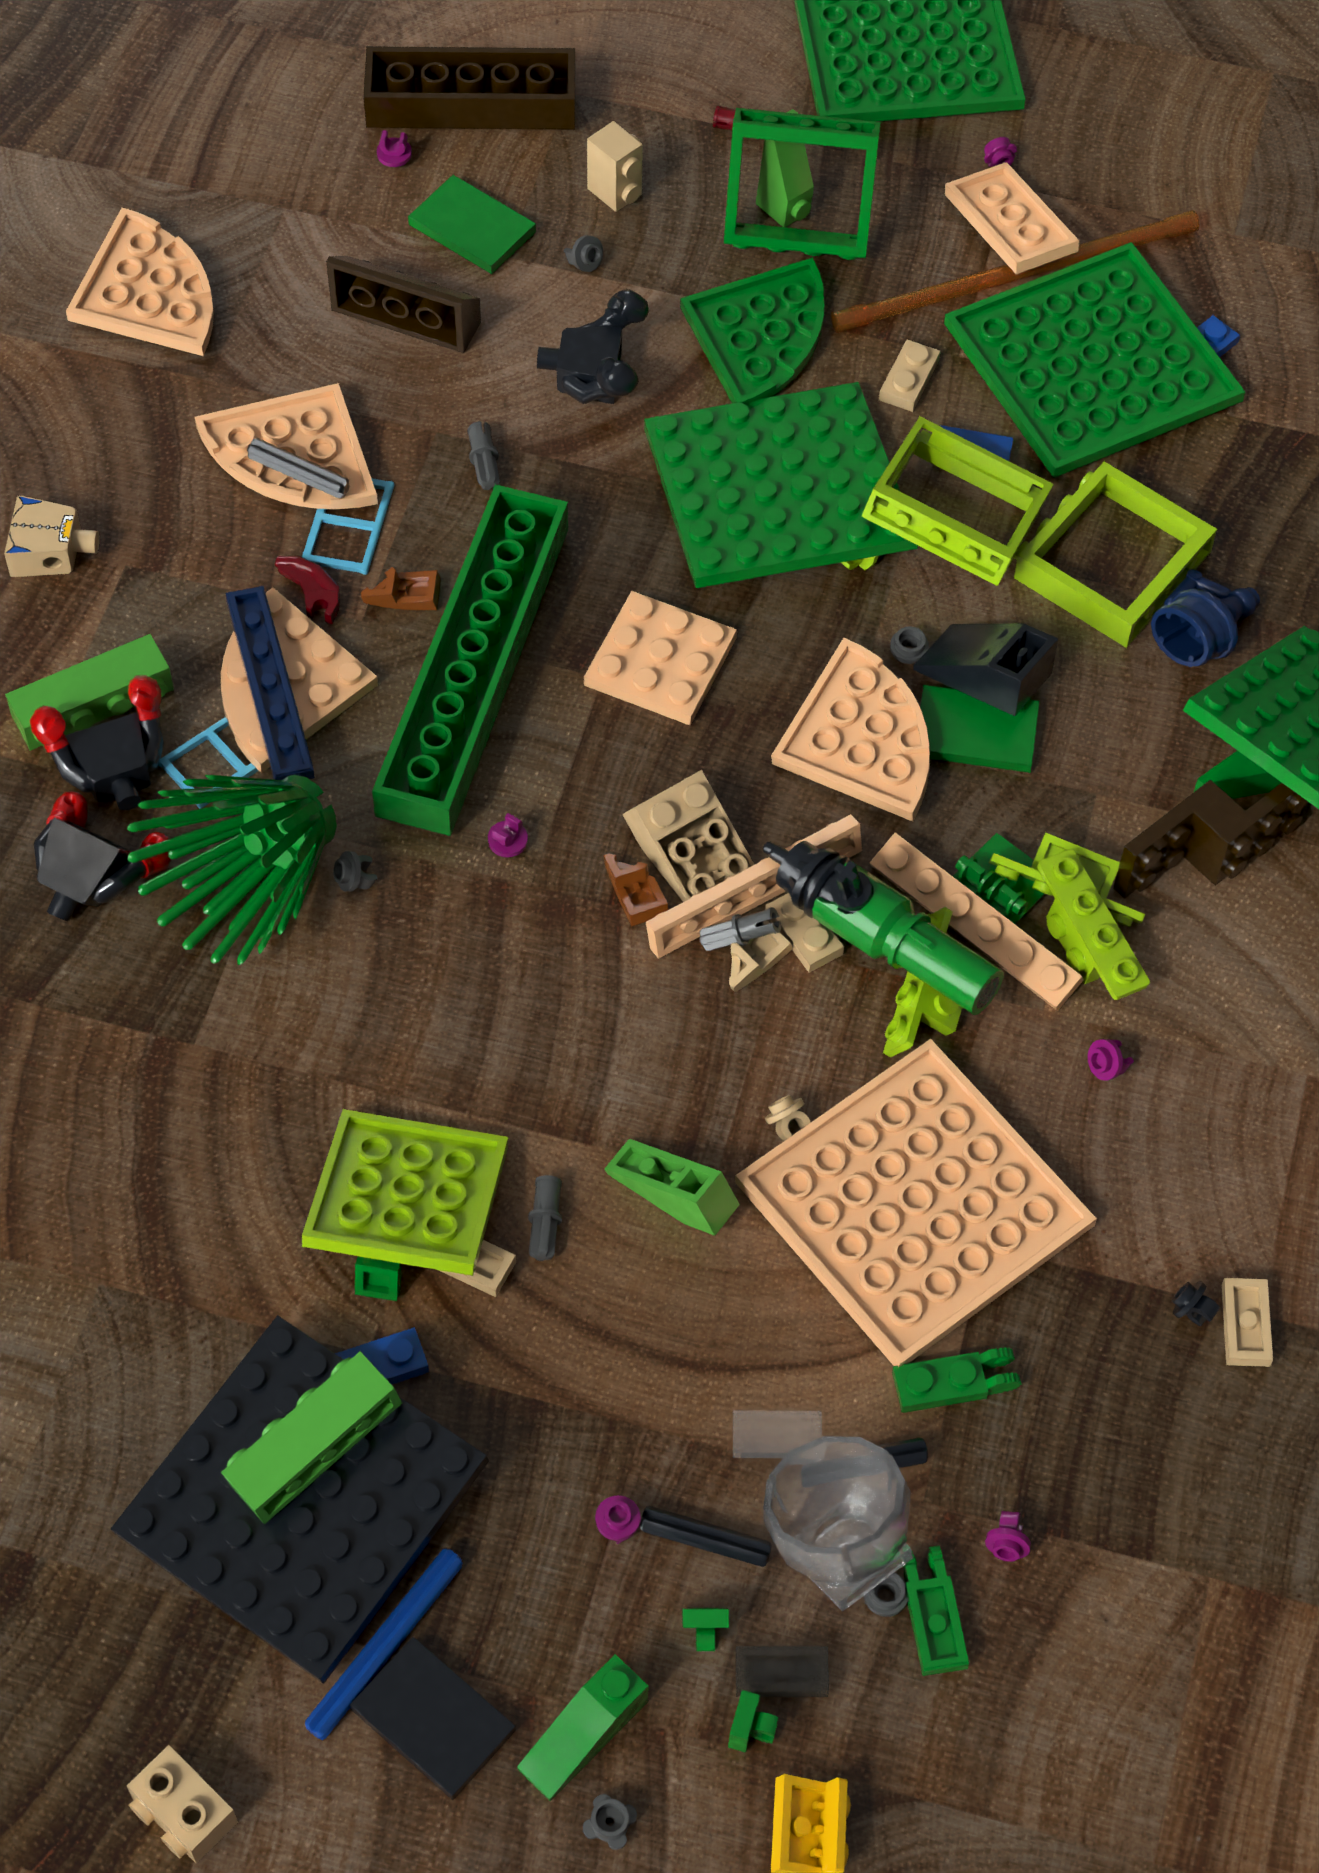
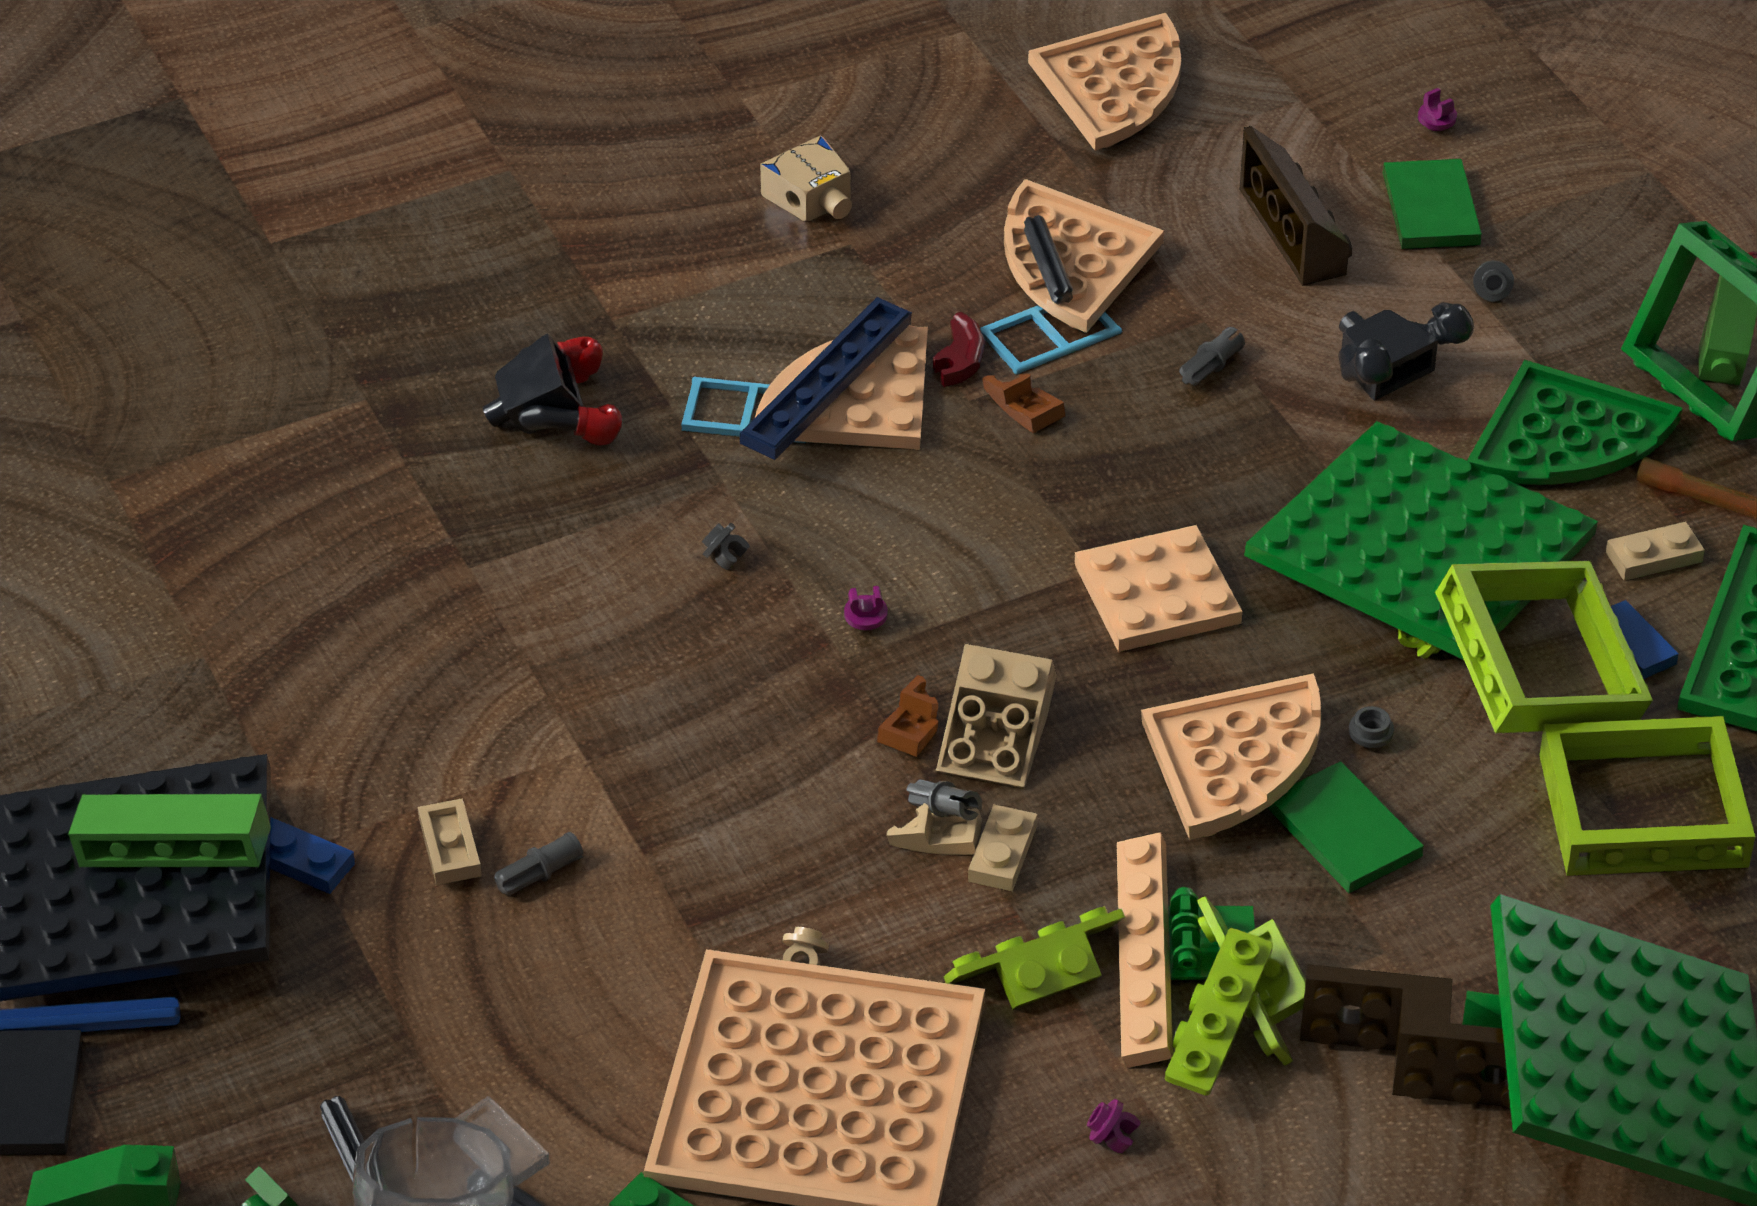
camera: 50 degrees right, 15 degrees down
(90, 688) = (704, 296): bright green brick -> none
(112, 756) = (661, 345): black torso -> none
(279, 831) = (689, 455): green plant -> none
(377, 1278) = (375, 796): green tile -> none
(406, 1192) = (461, 758): lime plate -> none
(470, 87) = (1555, 106): dark brown brick -> none
(471, 661) = (1000, 471): green brick -> none
(614, 166) = (1594, 230): tan brick -> none
(617, 1518) = (307, 1083): magenta plate -> none
(675, 1185) = (655, 923): bright green slope -> none
(740, 892) = (1005, 782): light nougat plate -> none
(882, 923) = (1043, 871): green piece -> none
(992, 662) = (1413, 786): black slope -> none
(1201, 619) = (1643, 895): dark blue piece -> none

